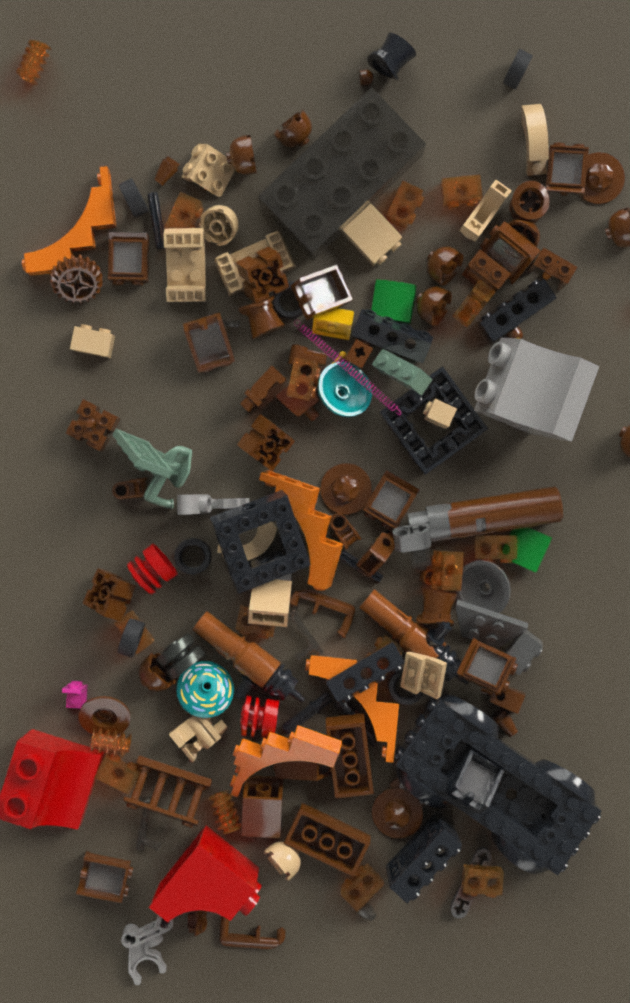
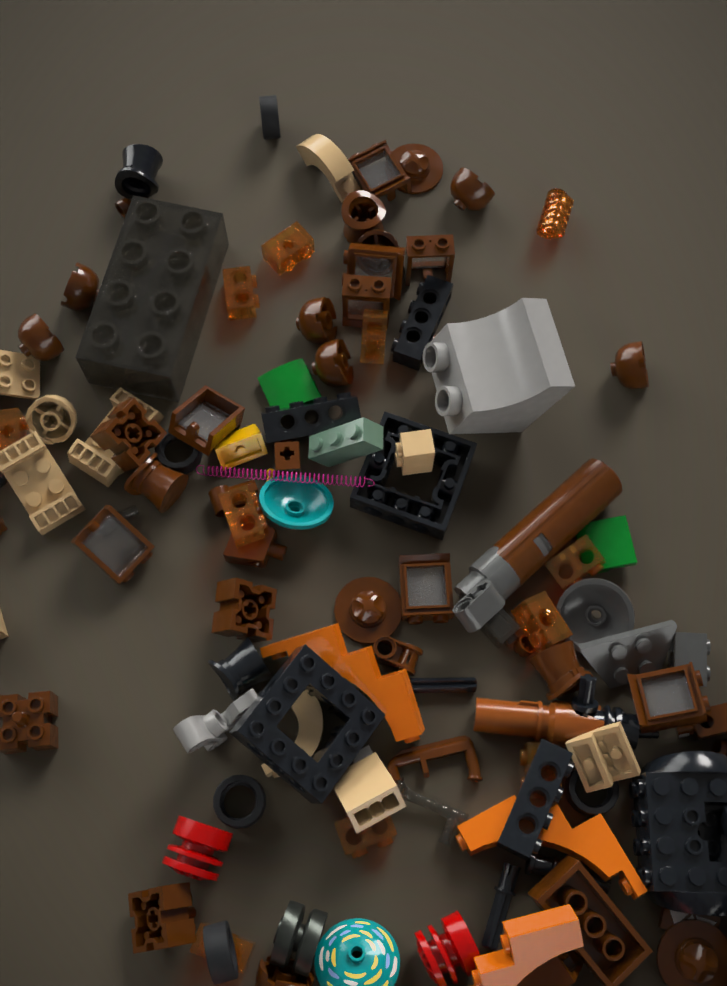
camera: 35 degrees left, 20 degrees down
(132, 487) = (118, 766): reddish brown piece -> none
(172, 465) = (155, 711): sand green plate -> none
(241, 478) = (241, 669): none -> black hat
(249, 659) = (387, 884): dark orange piece -> none
(261, 389) = (202, 564): reddish brown hips -> none
(372, 235) = (225, 338): tan brick -> none
(381, 549) = (453, 642): reddish brown torso -> none
(485, 211) = (325, 250): tan arch -> none

